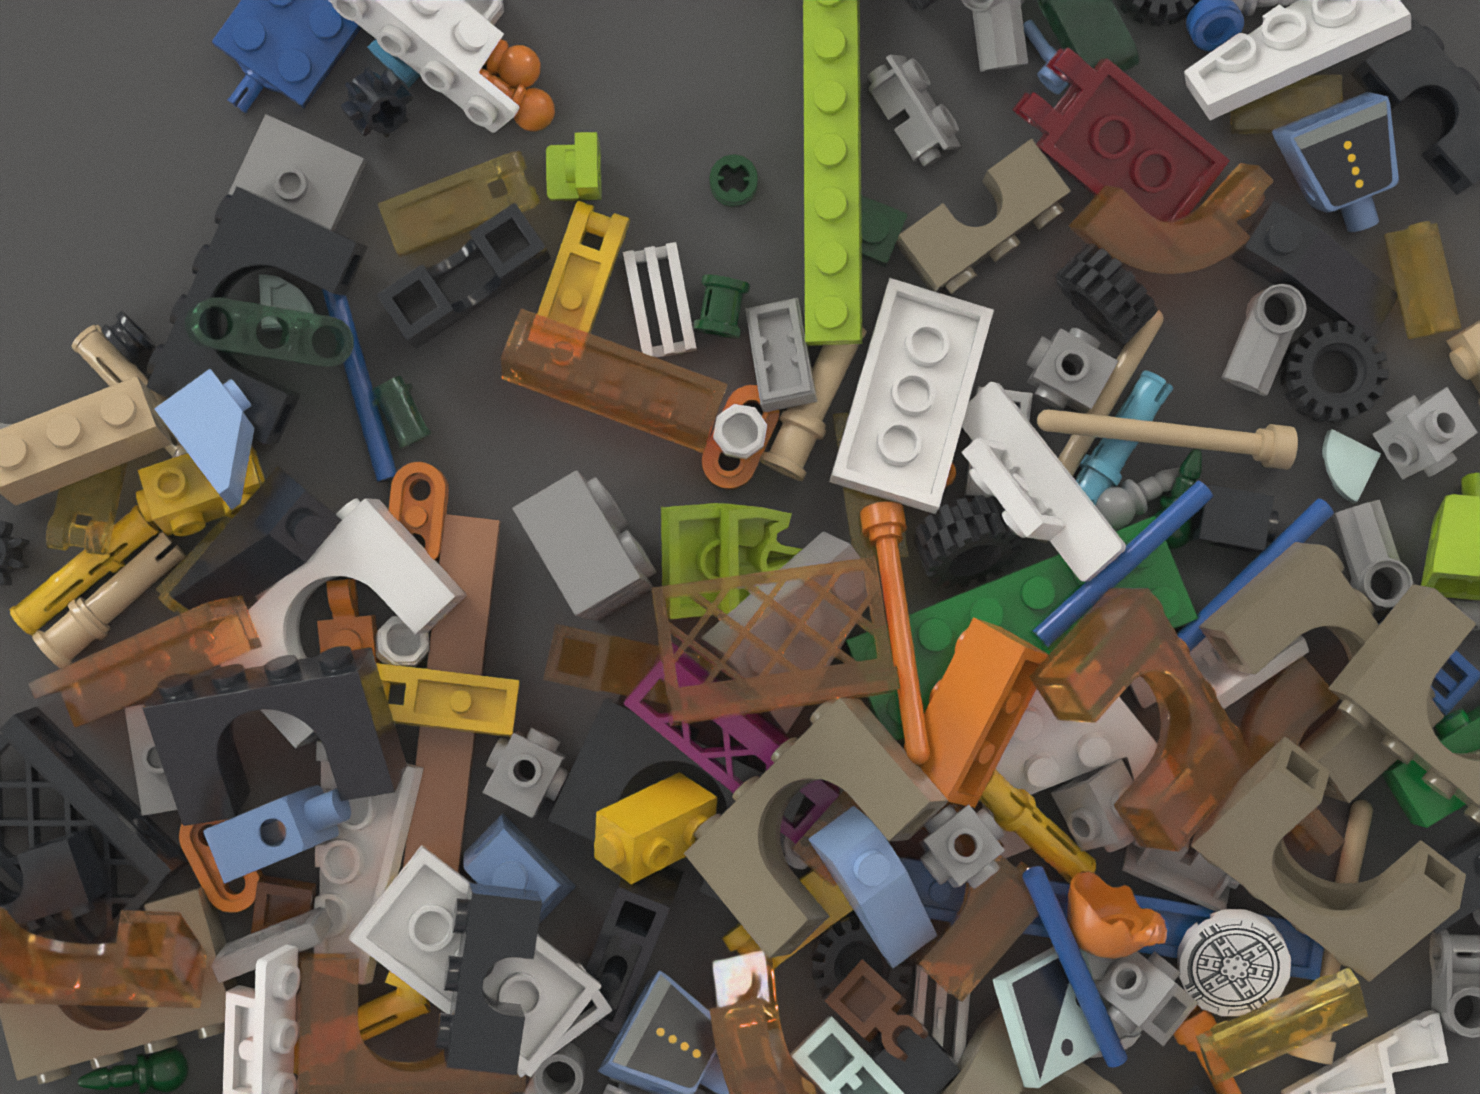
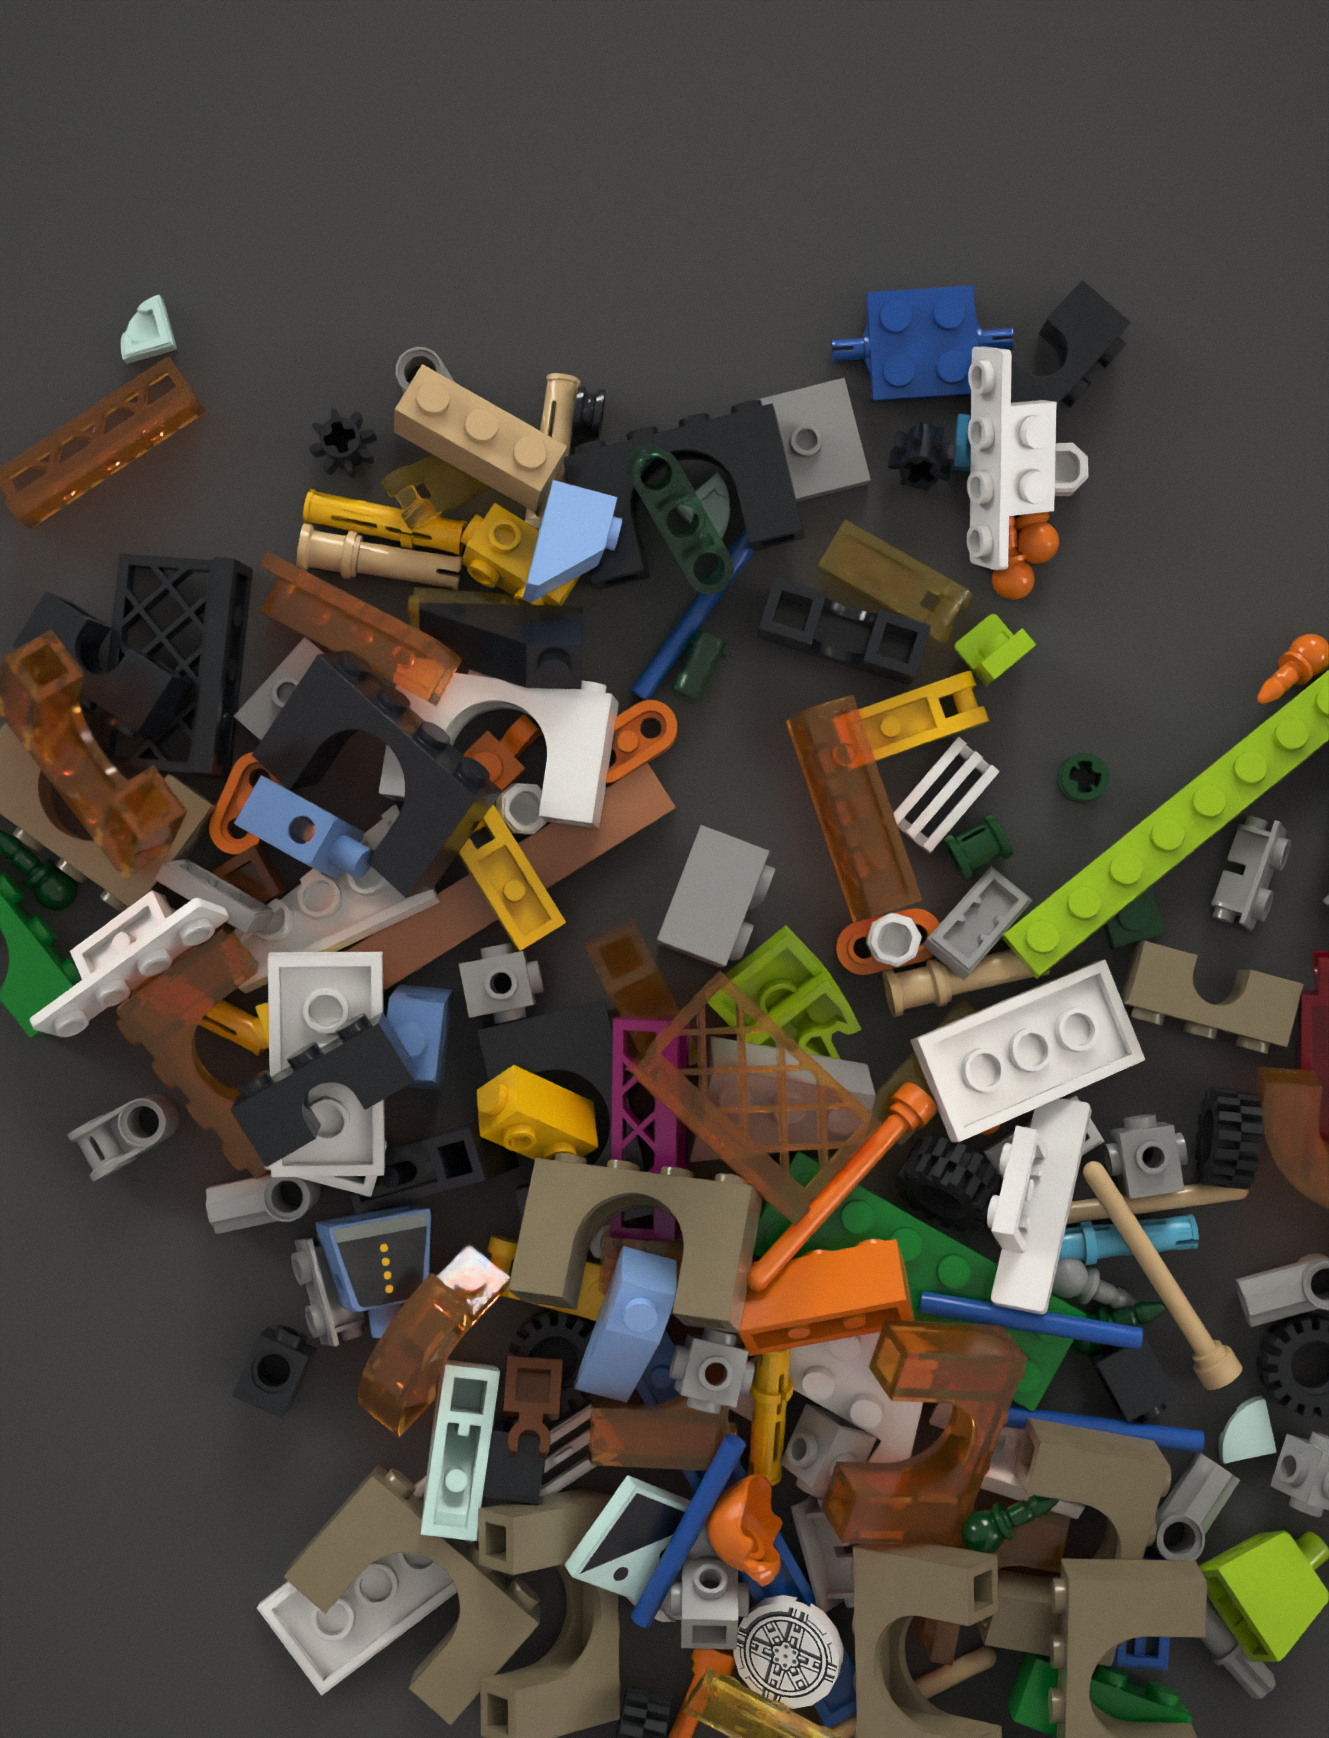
camera: 55 degrees right, 0 degrees up
(1261, 728) = (988, 1529): none -> dark green bar

